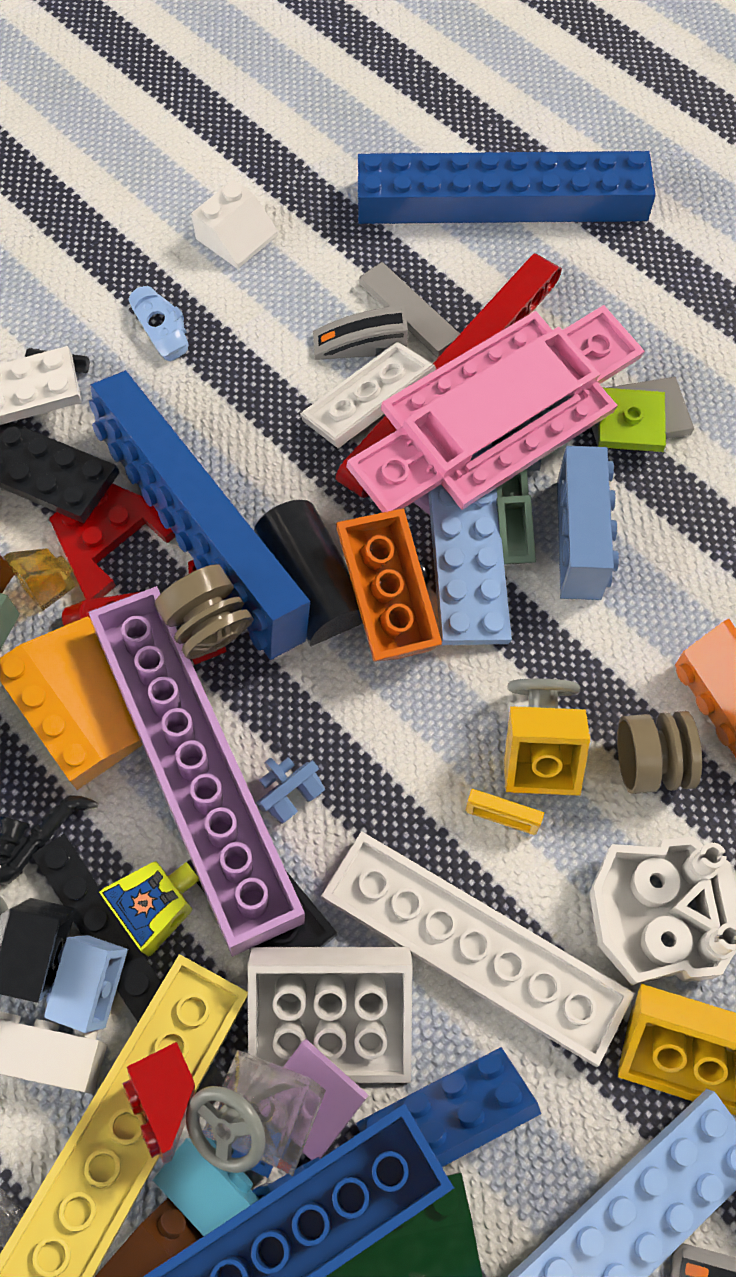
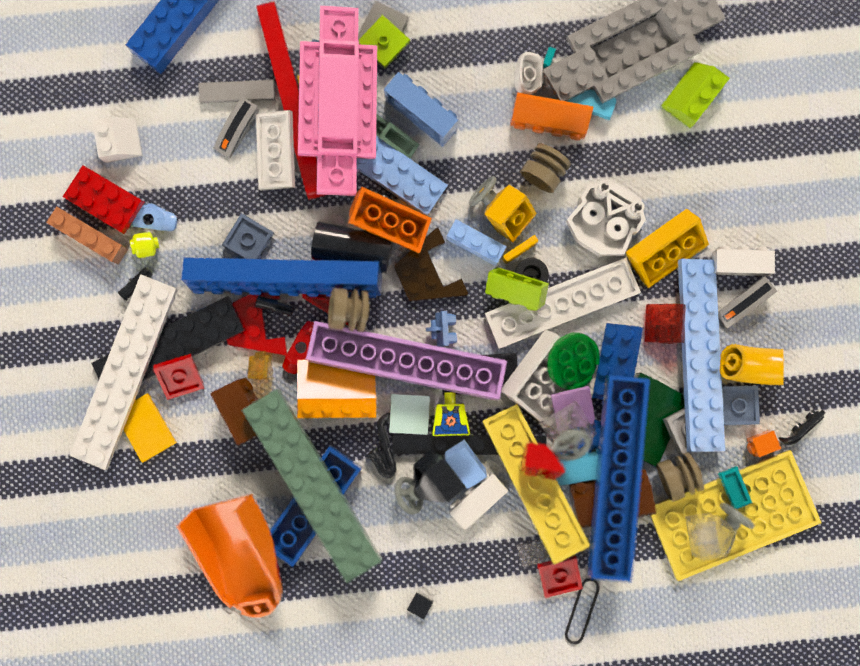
camera: 55 degrees left, 20 degrees up
(81, 271) = (87, 235): none -> nougat brick
(116, 837) = (409, 414): none -> light aqua tile
(117, 335) = (144, 244): none -> neon yellow head
(143, 259) = (103, 199): none -> red plate
(148, 535) = (274, 306): none -> black axle
(223, 443) = (248, 238): none -> sand blue plate
(347, 697) = (420, 276): none -> dark brown wing
(391, 1033) = (573, 360): none -> green tile
(437, 848) = (516, 288): none -> lime brick
(460, 738) = (475, 242): none -> light blue brick
(489, 838) = (536, 264): none -> black tyre
(583, 1154) = (665, 323): none -> clear red plate

